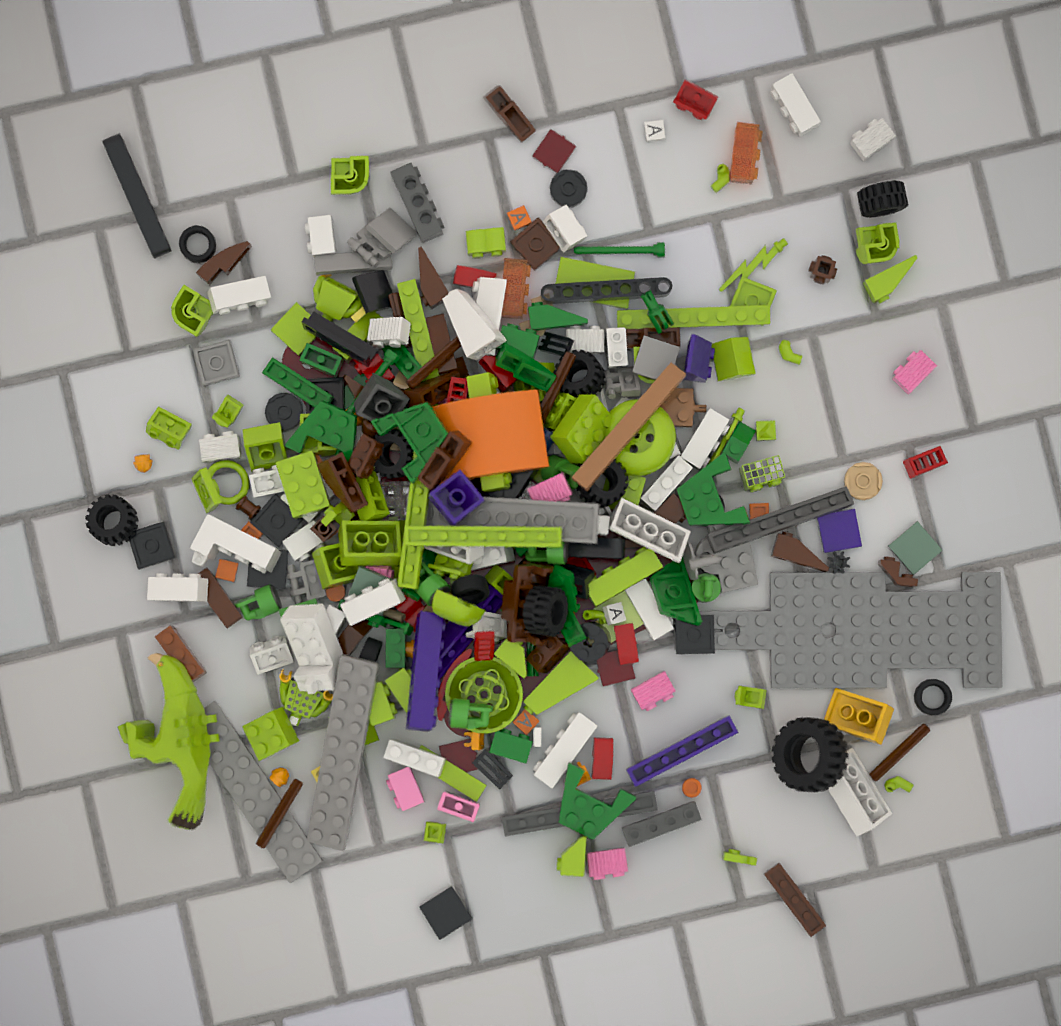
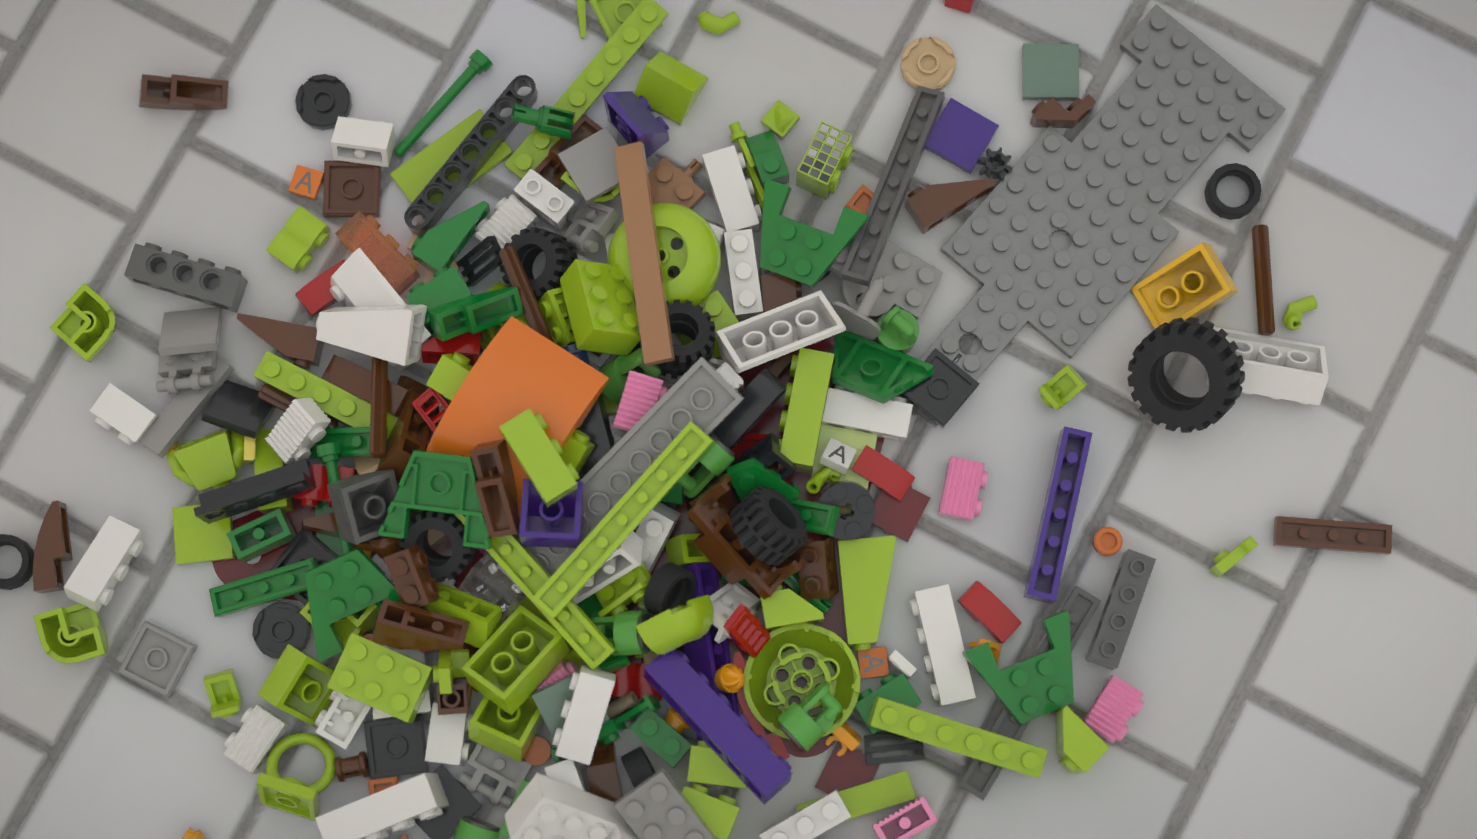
camera: 45 degrees left, 5 degrees down
(167, 428) = (179, 779): lime bracket -> none
(453, 657) = (729, 678): none -> light orange plate
(477, 468) = (540, 456): none -> lime brick
(523, 796) = (957, 737): none -> lime brick
(554, 151) = (269, 82): dark red piece -> none

